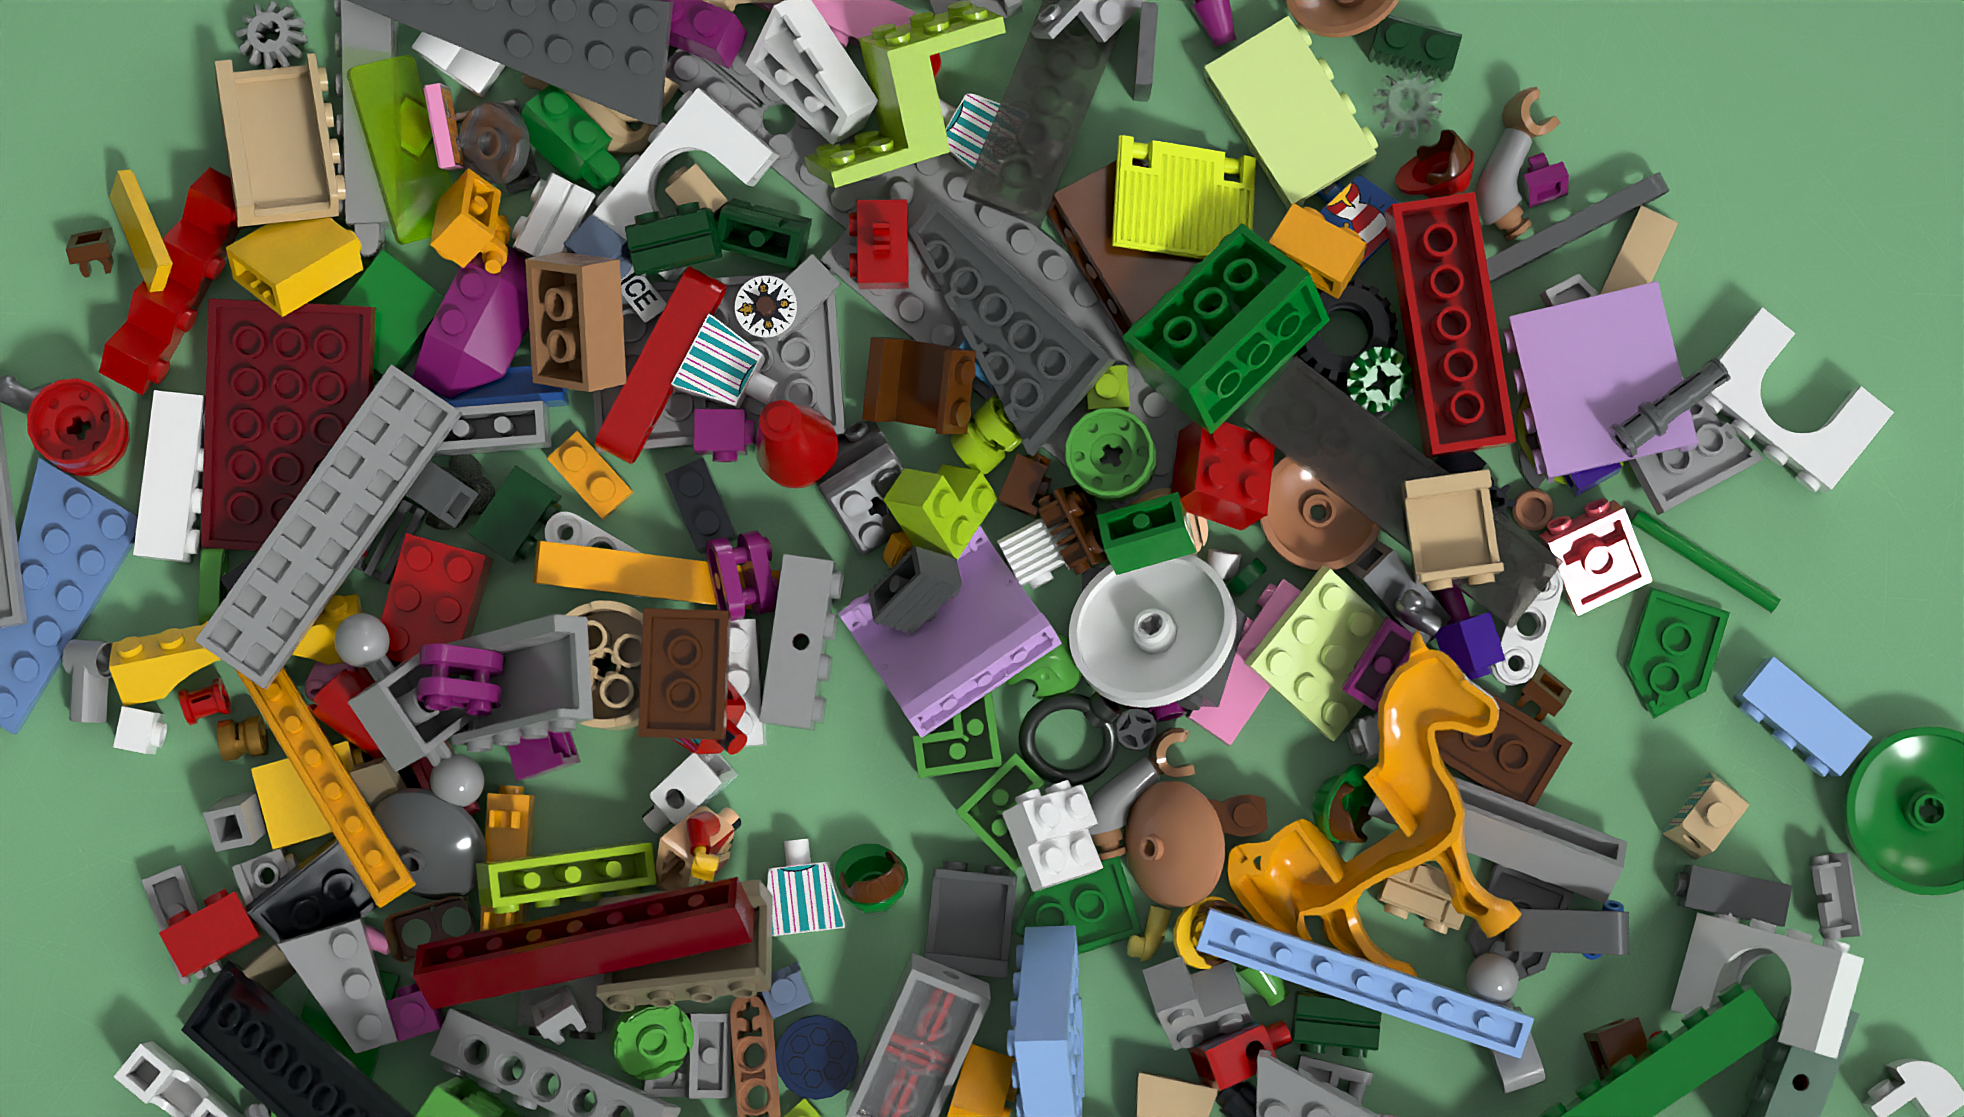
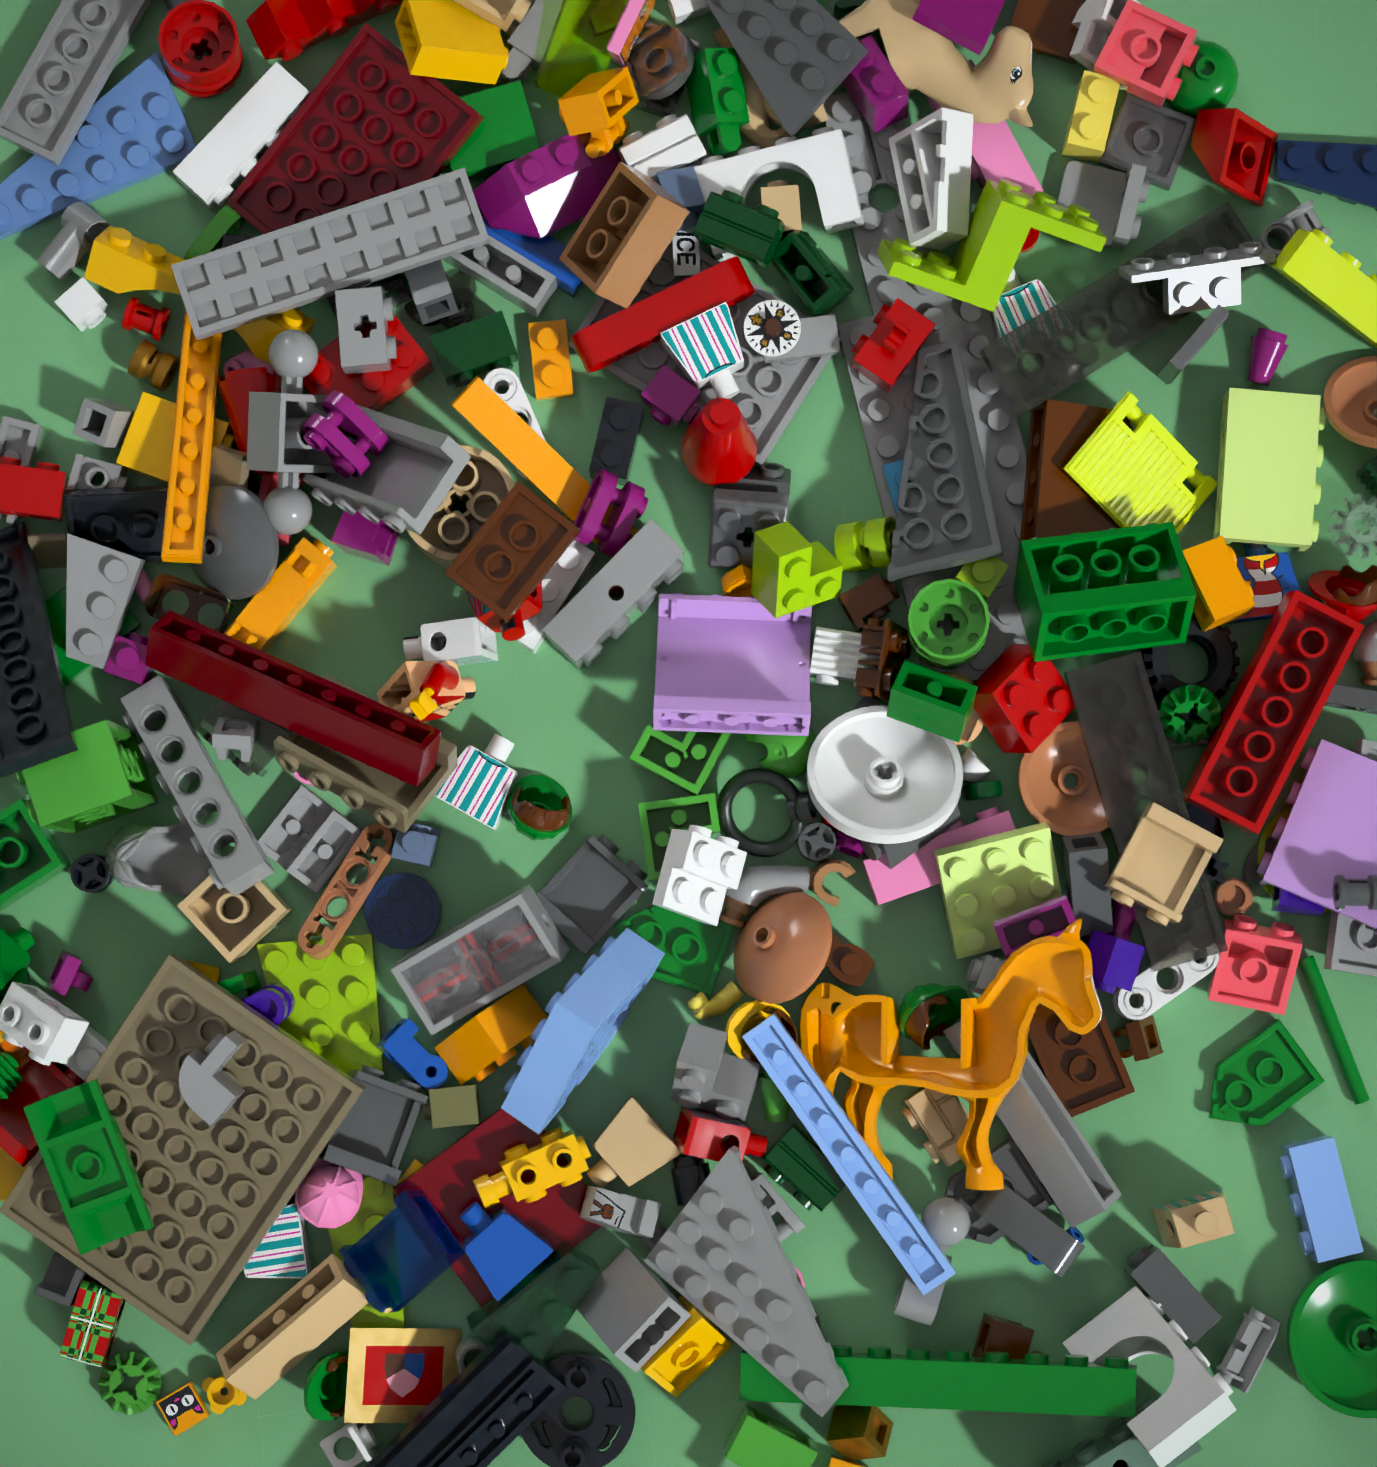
camera: 25 degrees right, 0 degrees up
(386, 562) = (353, 310): none -> light grey brick
(565, 874) = (314, 636): lime brick -> none
(651, 1041) = (289, 807): bright green tile -> none
(914, 589) = (728, 617): dark grey brick -> none
(919, 384) = (843, 468): reddish brown panel -> none
(1414, 615) = (1086, 904): flat silver arm -> none

